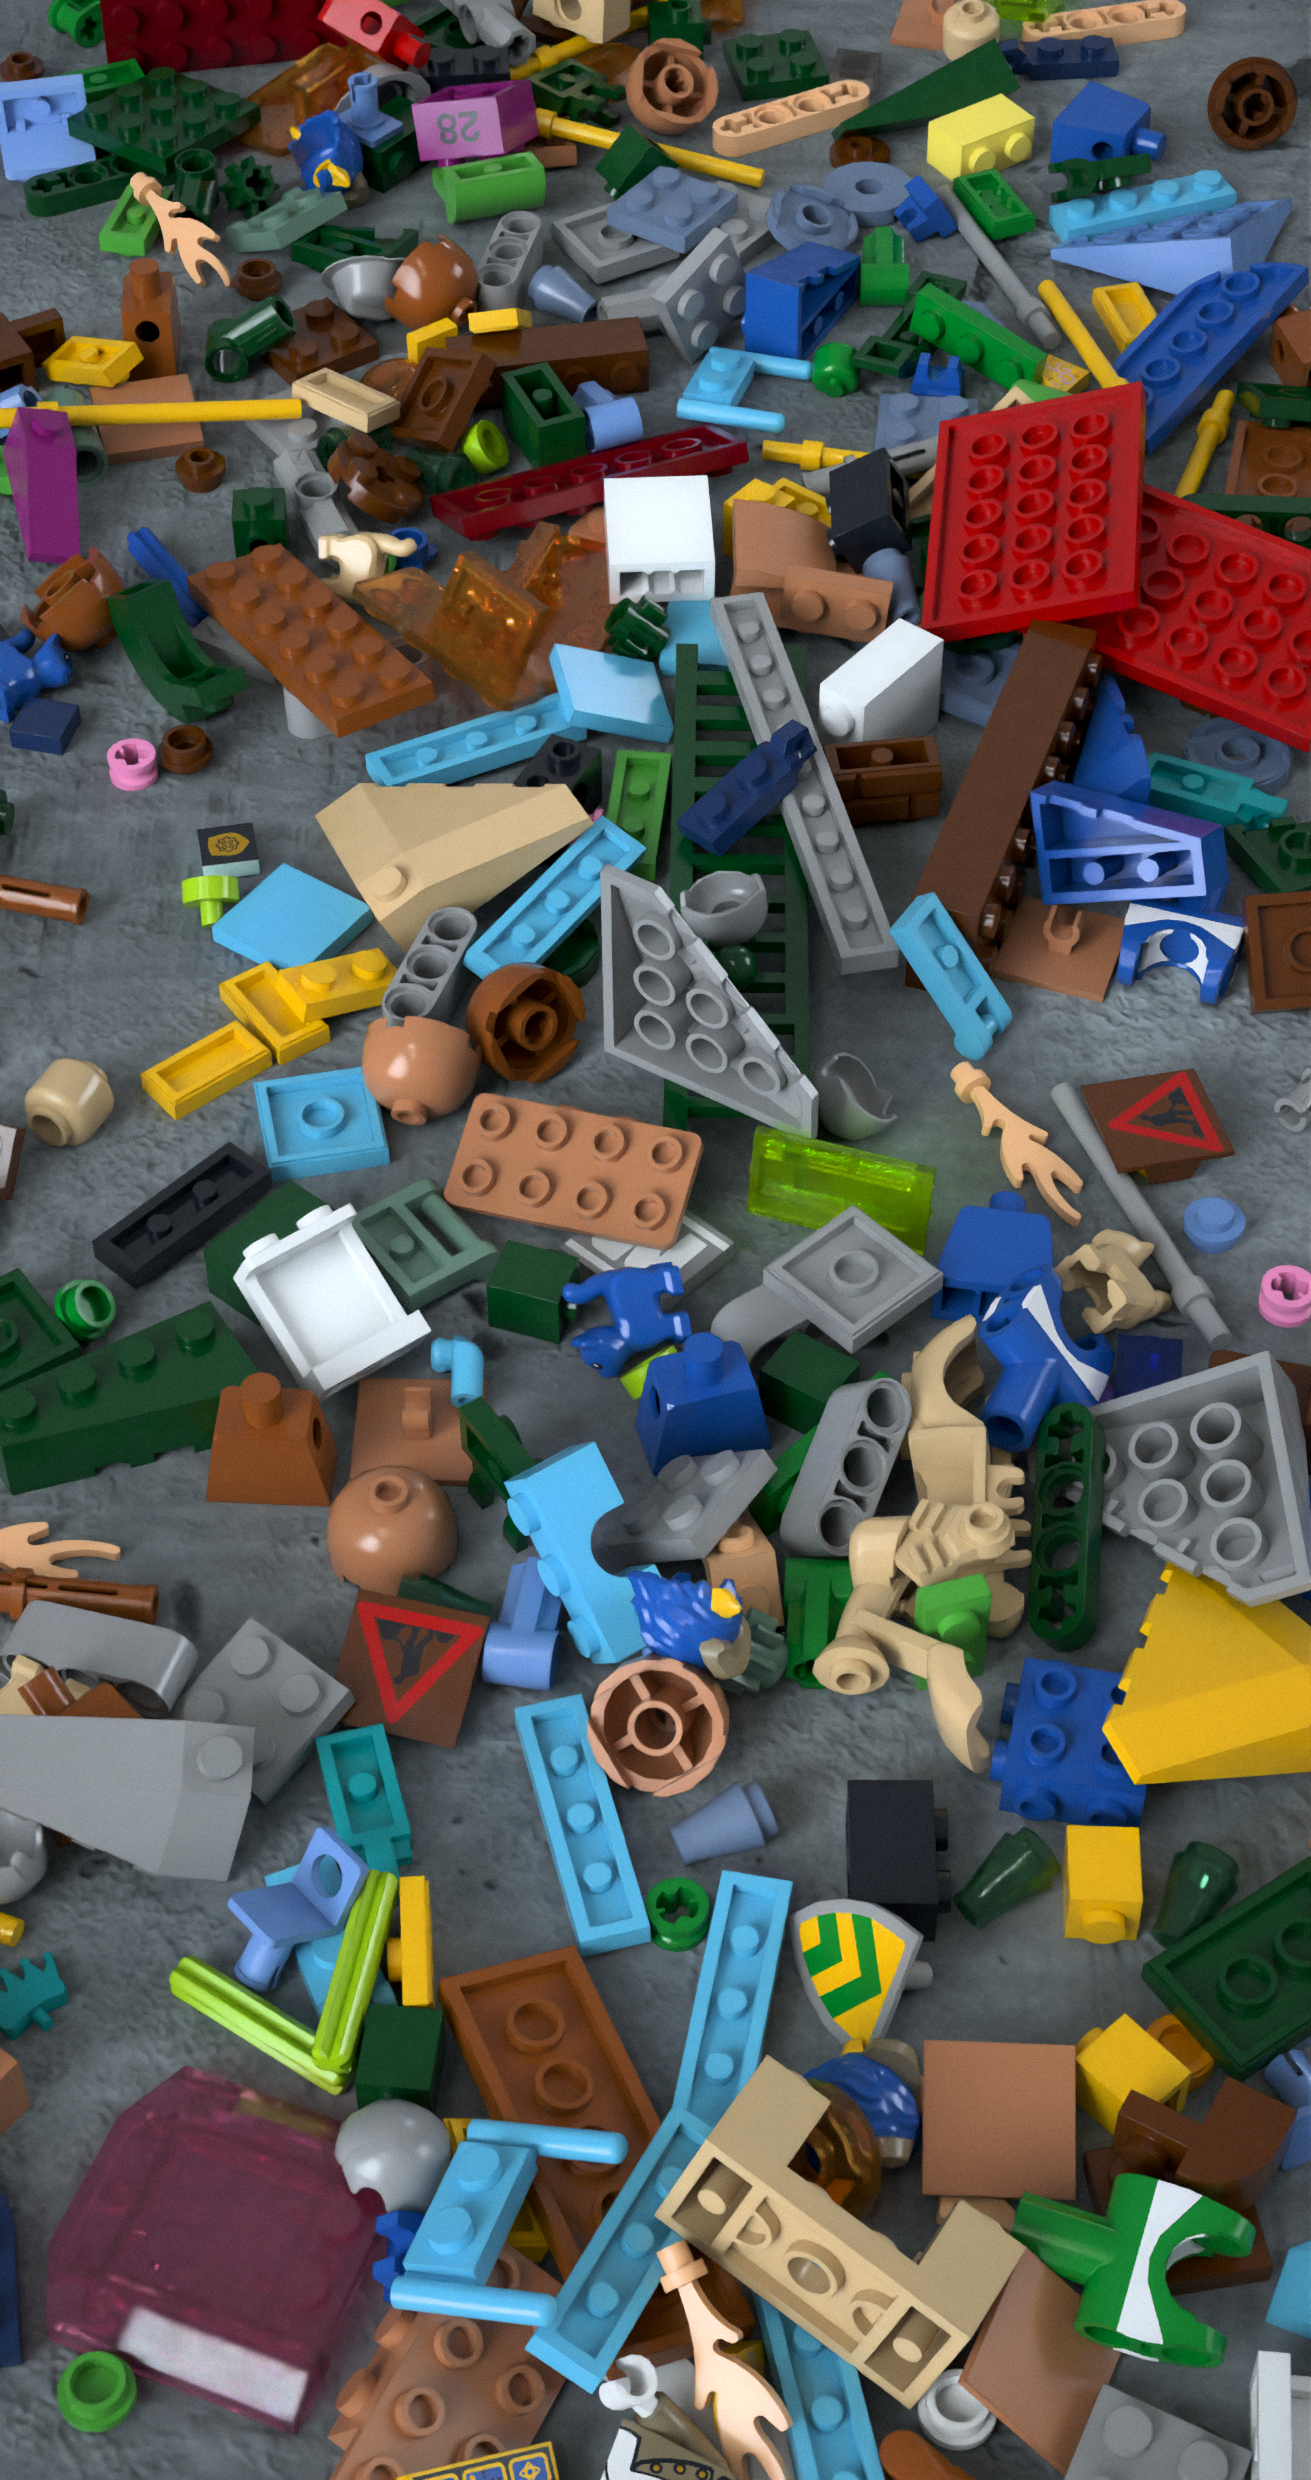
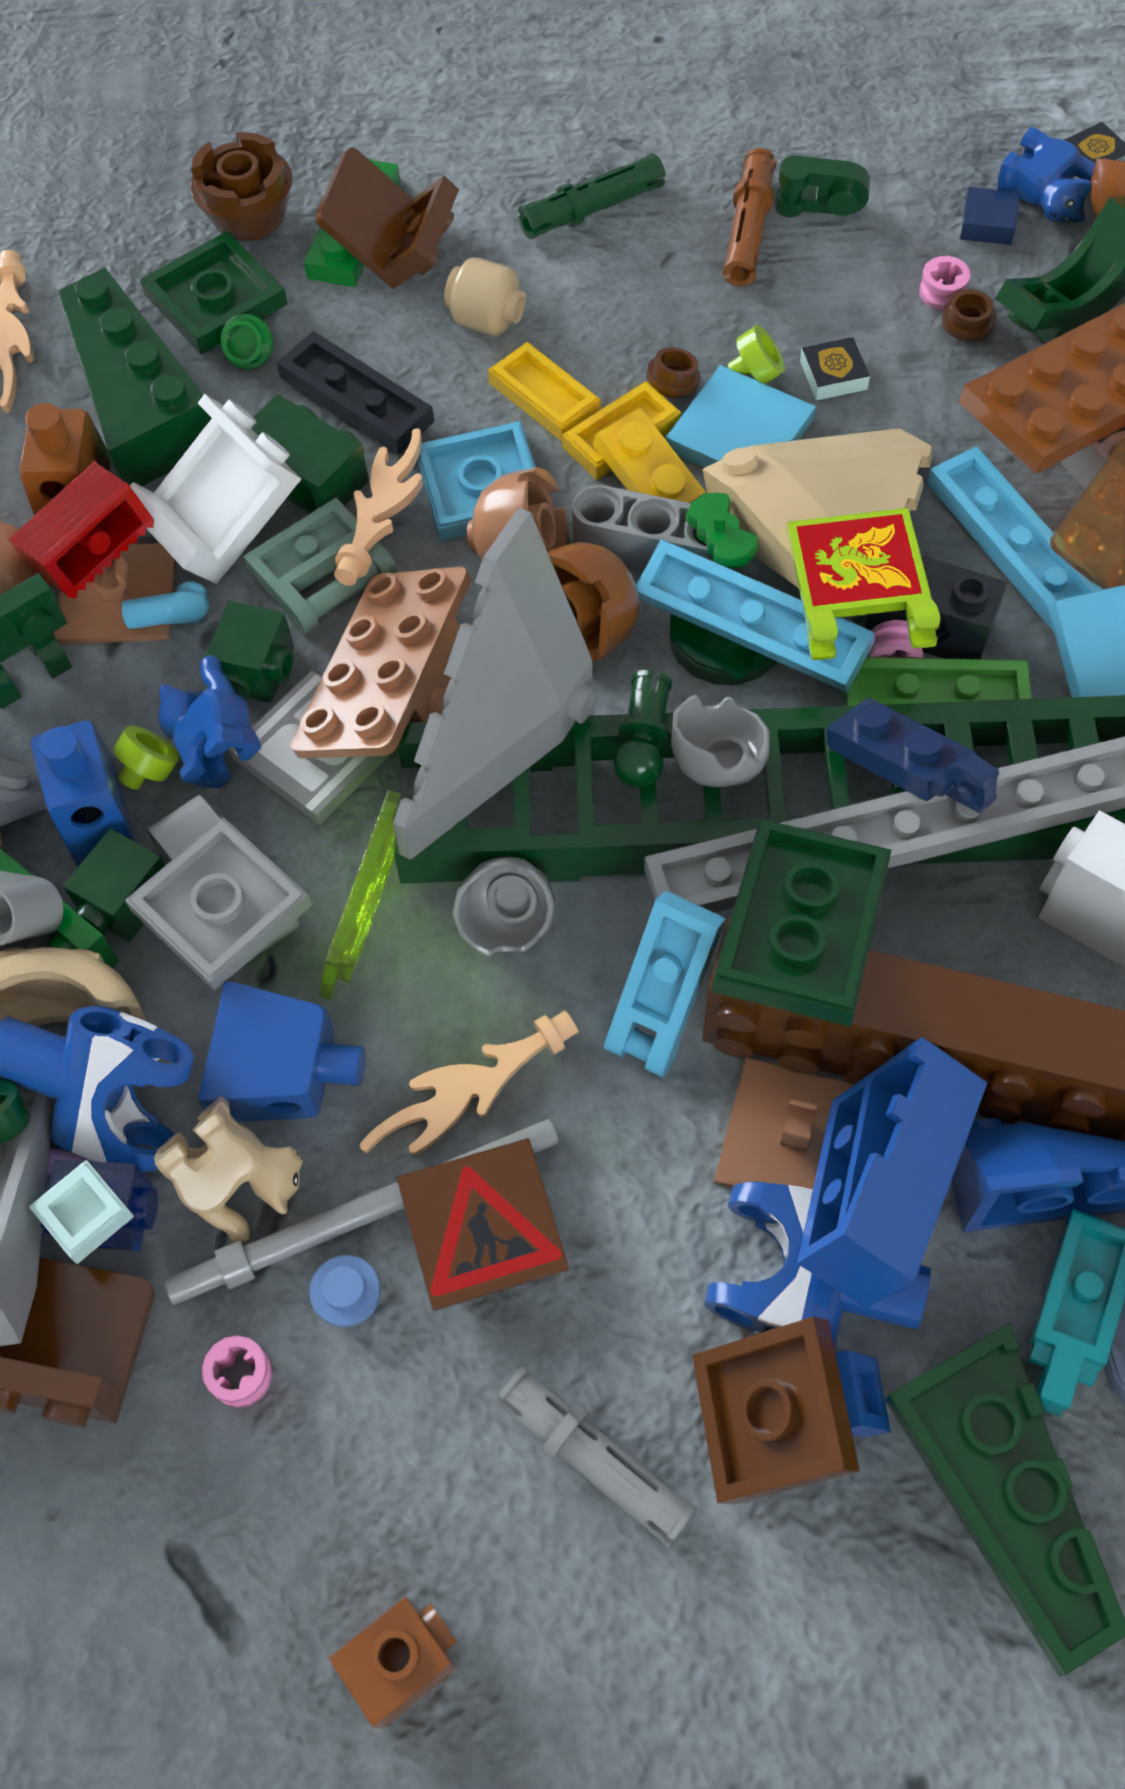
camera: 90 degrees right, 15 degrees up
(214, 960) = (673, 372): none -> reddish brown plate
(363, 1182) = (387, 499): none -> light nougat piece
(385, 1395) = (82, 530): none -> red brick
(463, 909) = (721, 531): none -> green piece
(562, 798) = (860, 569): none -> flag
(887, 778) = (1013, 913): reddish brown brick -> none
(920, 851) = (802, 922): none -> dark green tile
(1167, 1354) = (81, 1211): none -> light aqua tile

